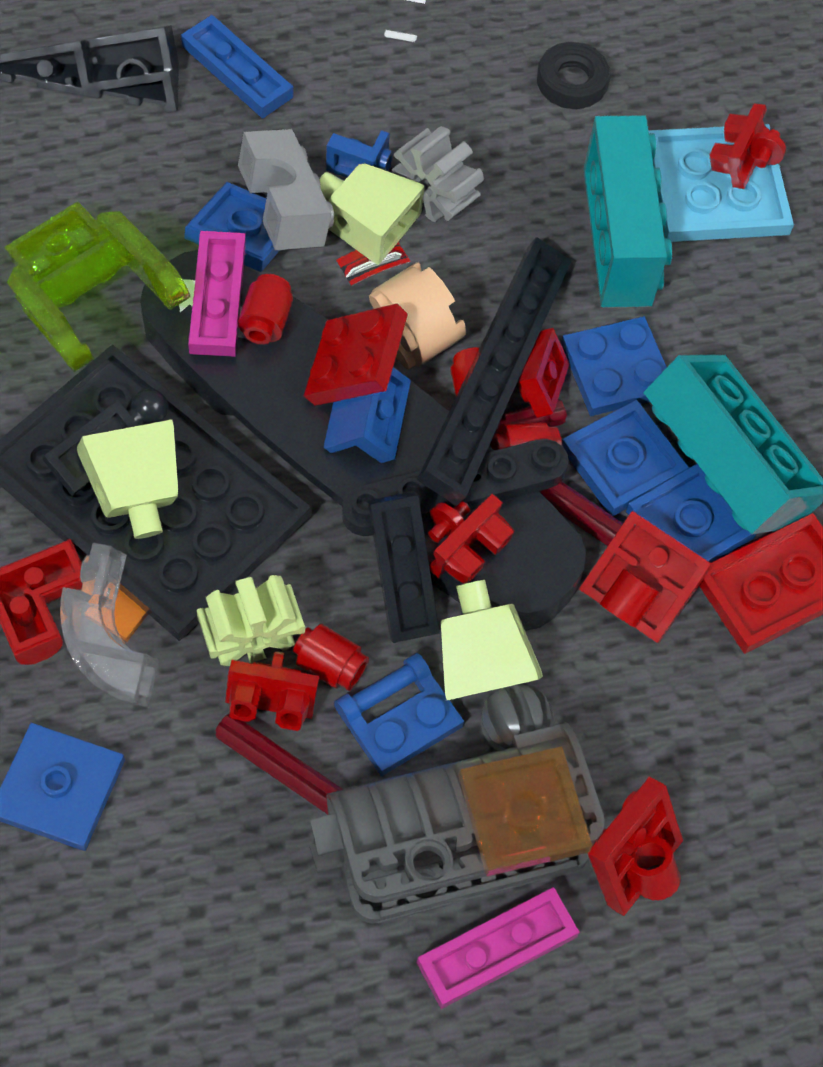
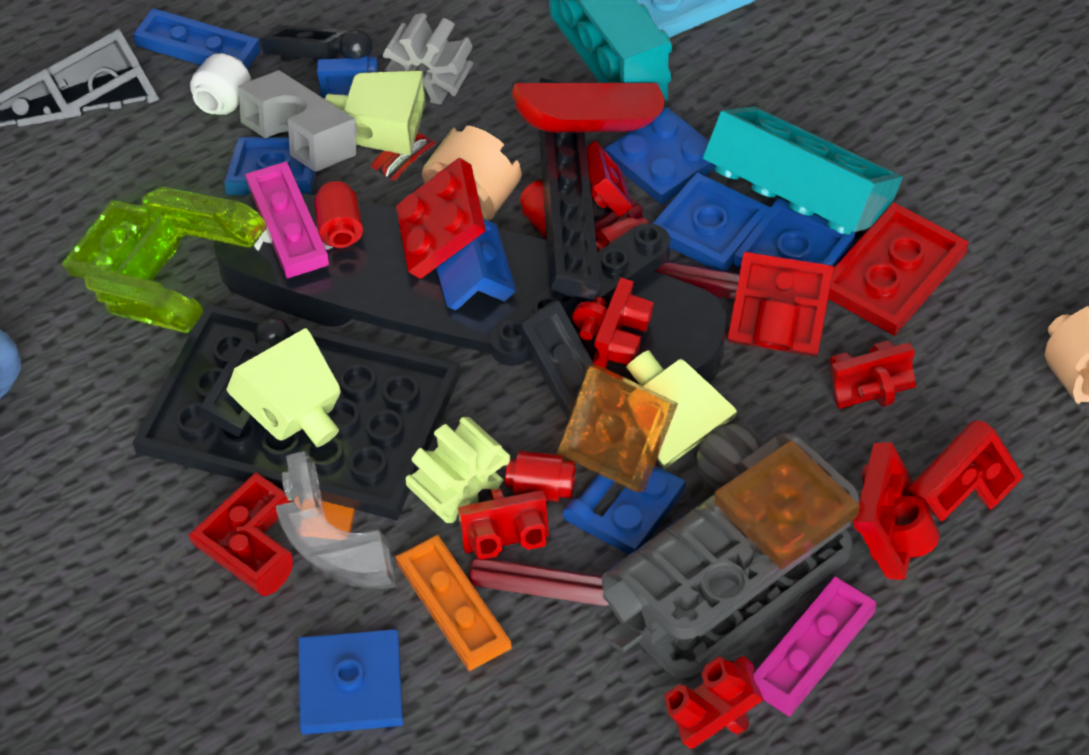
camera: 15 degrees left, 10 degrees down
(189, 748) = (453, 603): none -> orange tile
(231, 117) = (217, 82): none -> white head
(343, 113) = (316, 43): none -> black plate
(371, 969) = (718, 702): none -> red hips
(416, 647) = (617, 428): none -> clear orange plate
(561, 291) = (588, 106): none -> red brick
(698, 690) = (872, 375): none -> red hips
(733, 833) = (969, 463): none -> red brick

